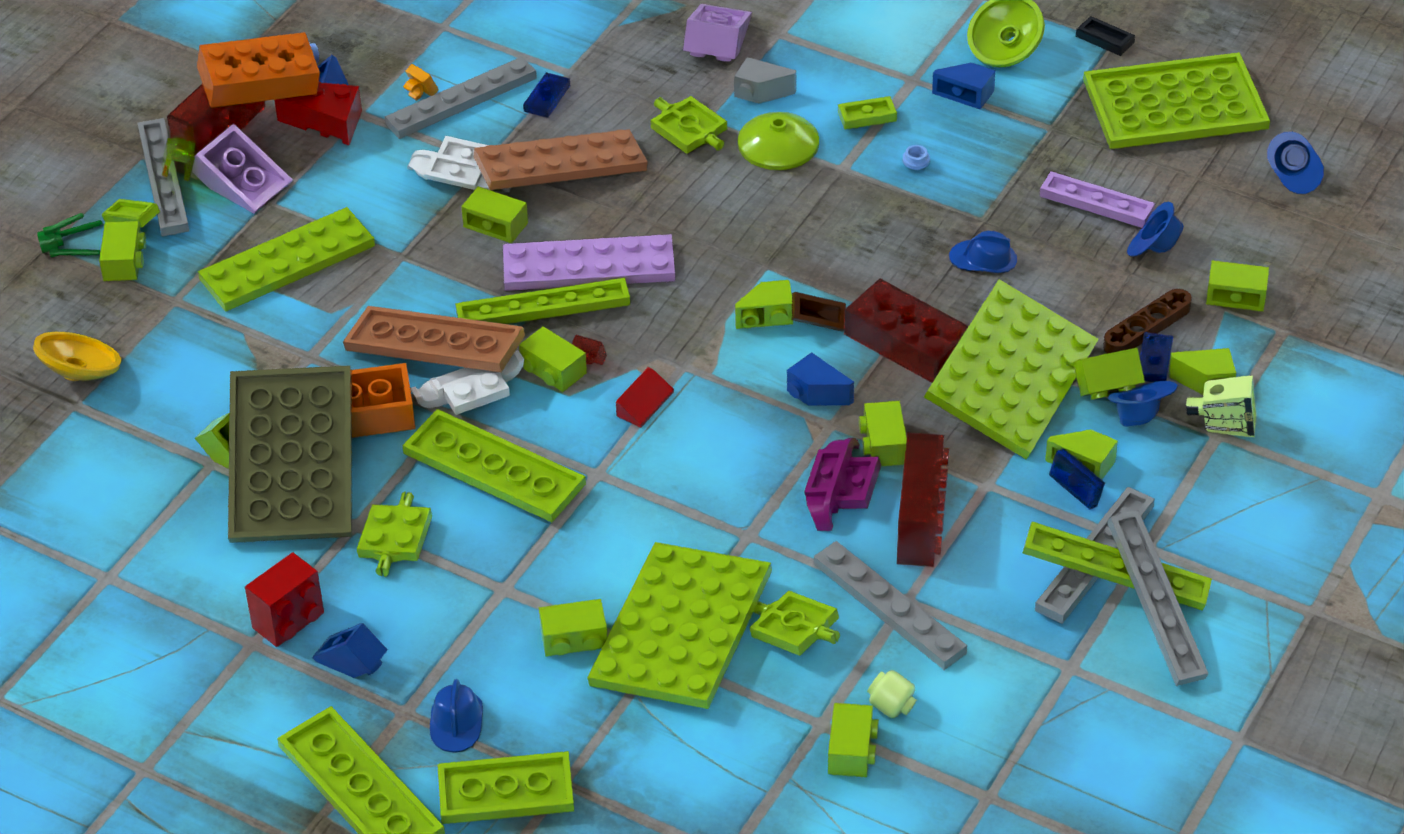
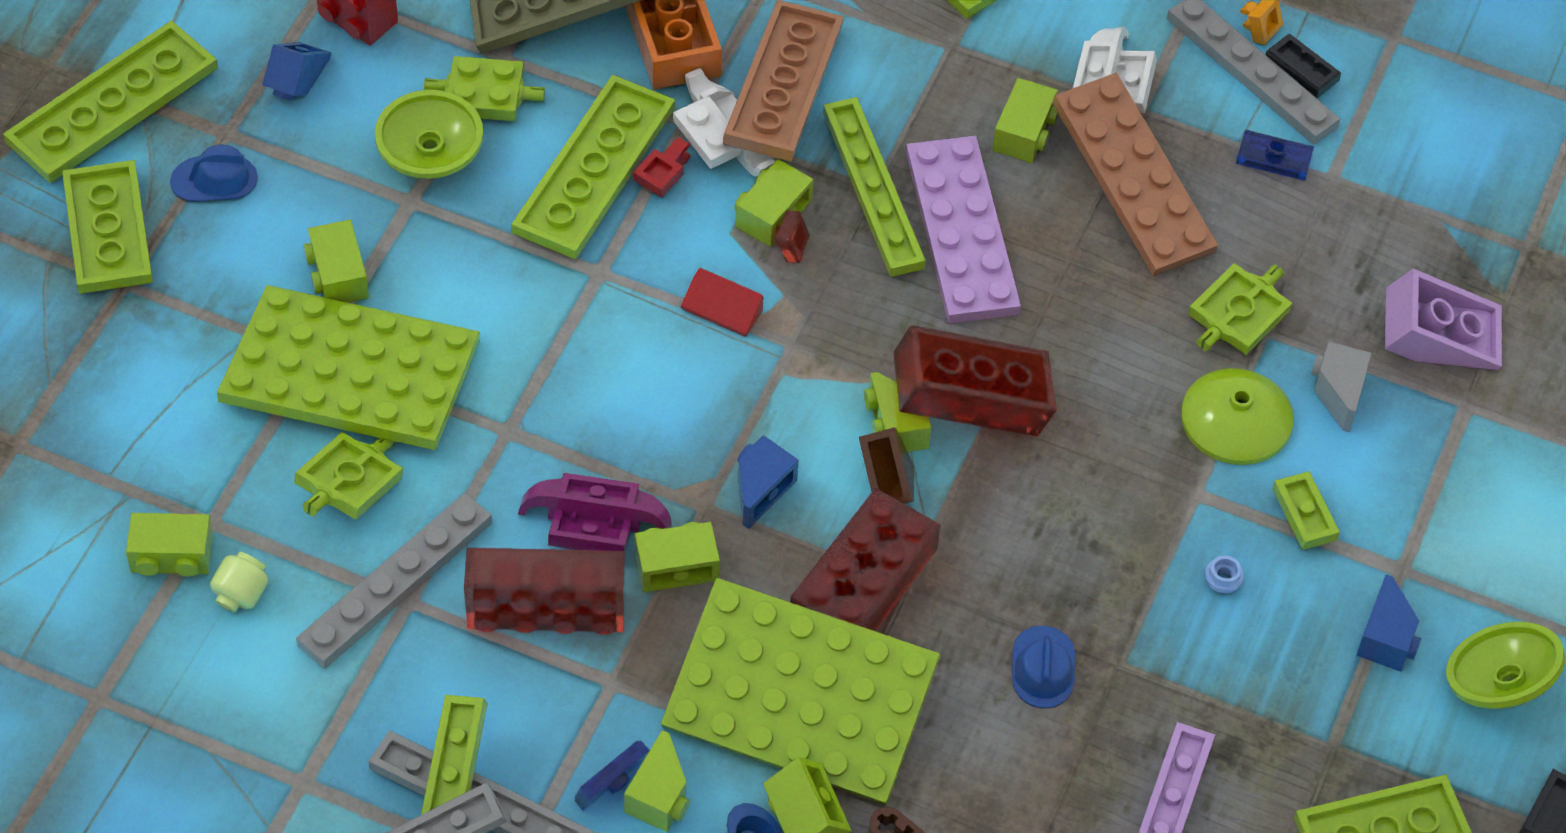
camera: 80 degrees right, 10 degrees up
(451, 557) = (424, 122): none -> lime dish
(466, 68) = (1304, 65): none -> black plate
(504, 424) = (662, 170): none -> red plate
(756, 248) = (974, 381): none -> clear red brick

